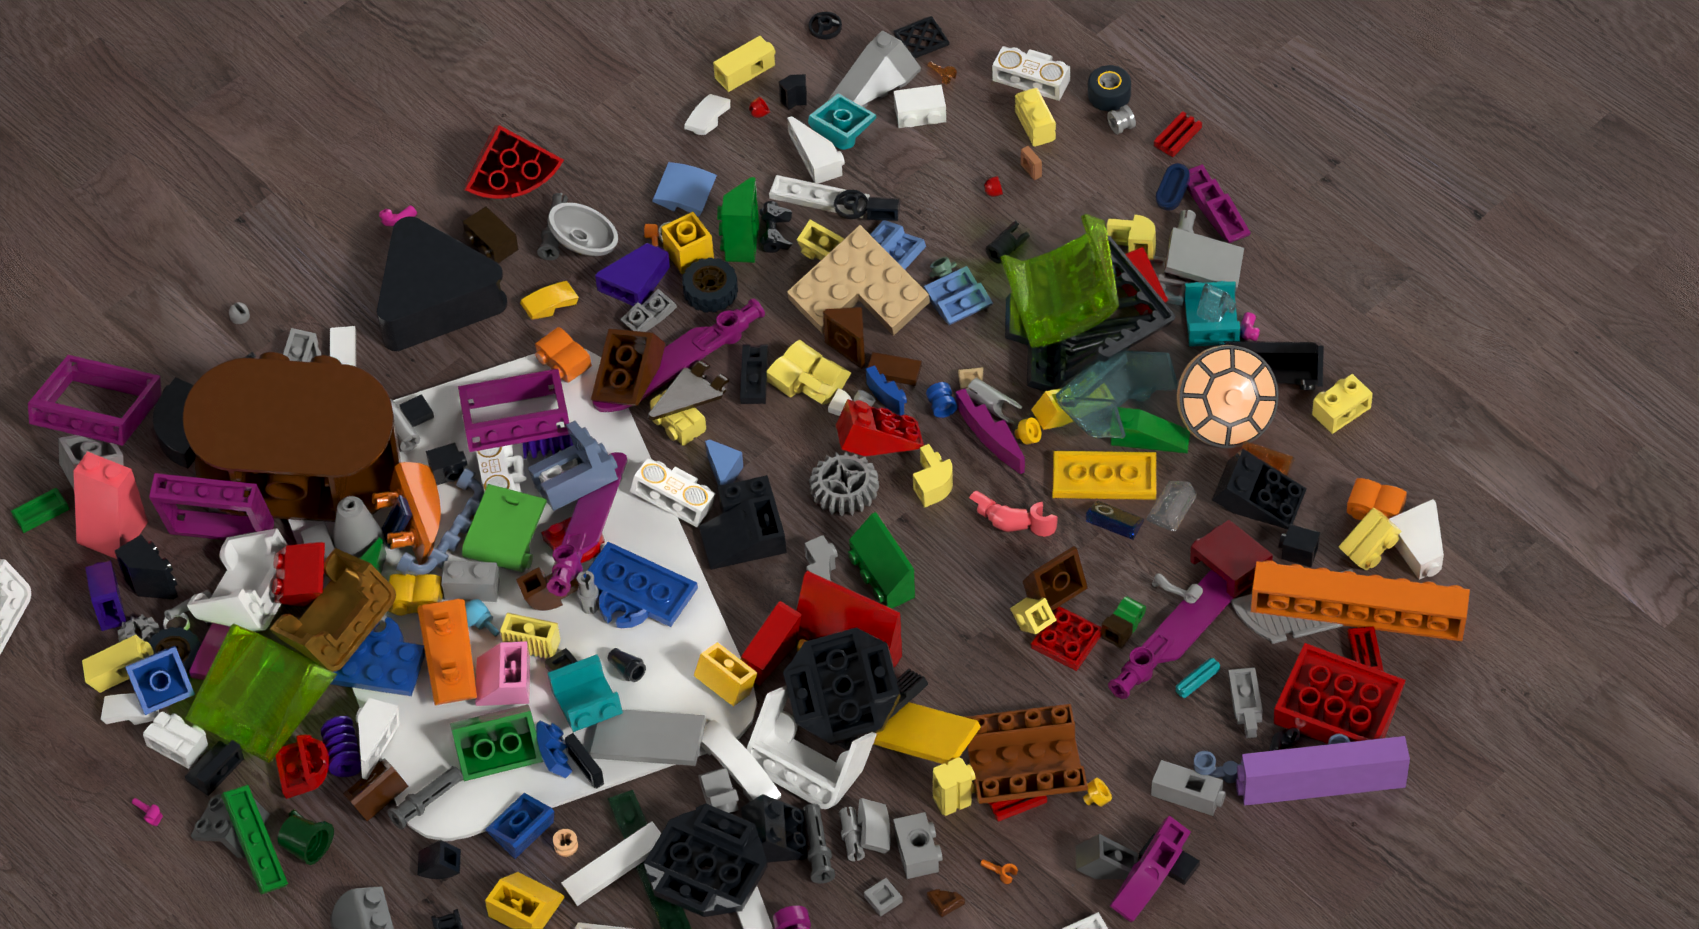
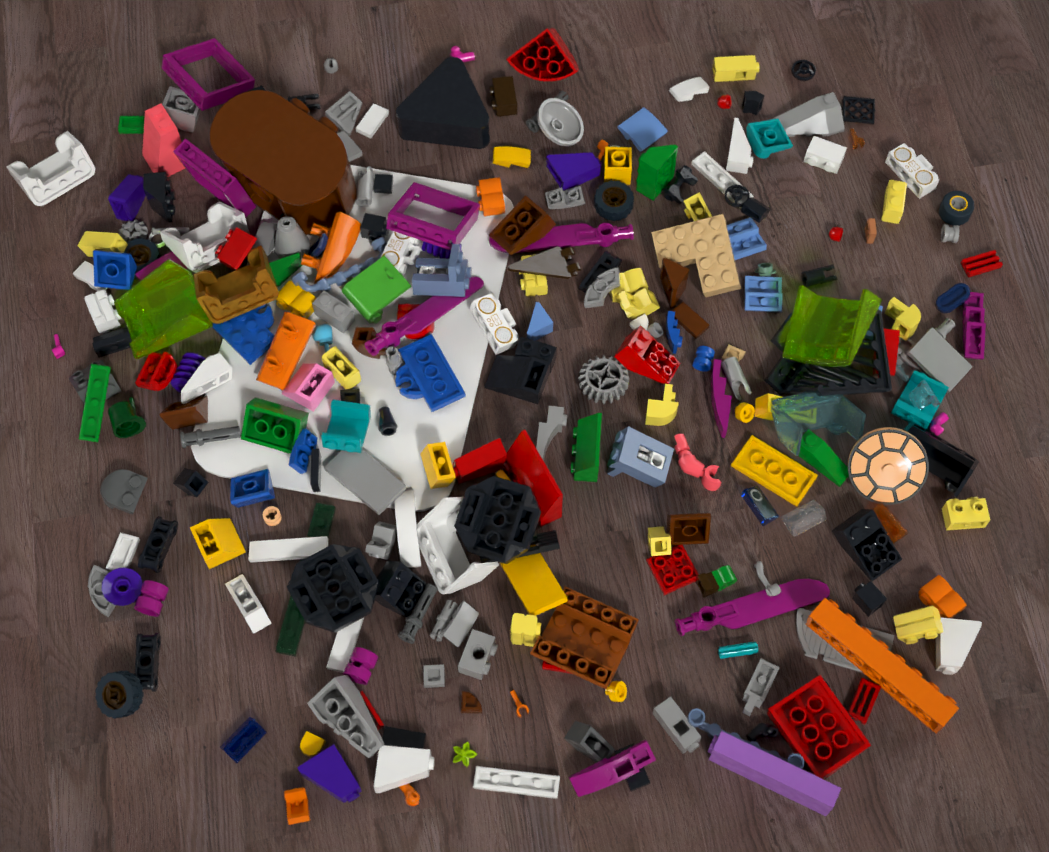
camera: 30 degrees right, 10 degrees up
(769, 384) = (601, 287): none -> light grey tile
(947, 539) = (634, 456): none -> brick
(1230, 555) = (816, 579): dark red panel -> none

